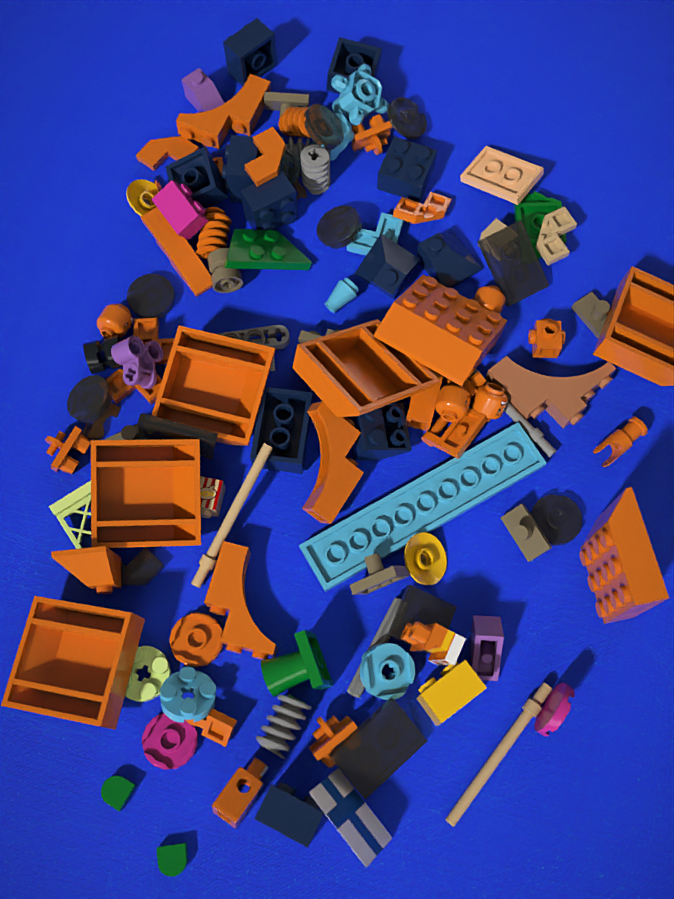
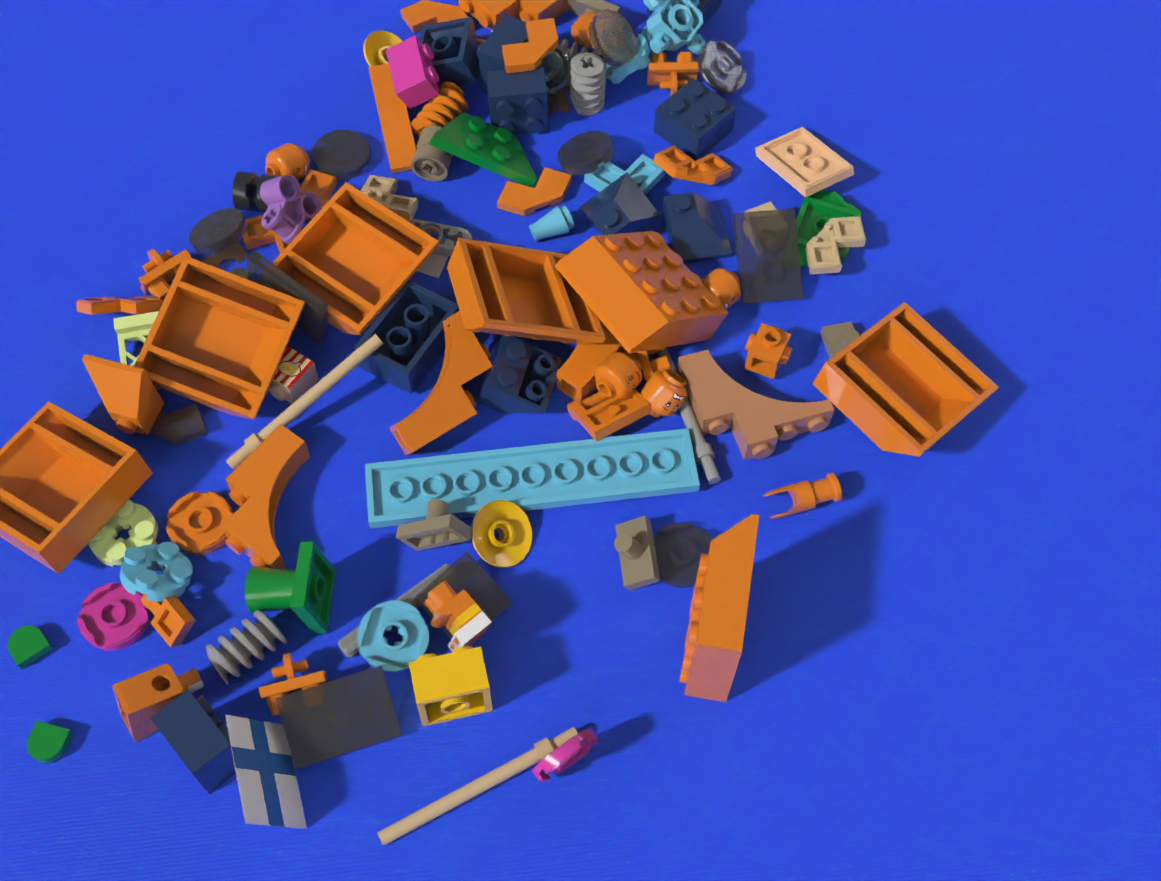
camera: 20 degrees right, 10 degrees down
(32, 495) = (111, 304): none -> orange tile
(197, 318) = (383, 191): none -> tan tile
(310, 282) = (524, 200): none -> orange tile
(486, 646) = (522, 659): medium lavender slope -> none

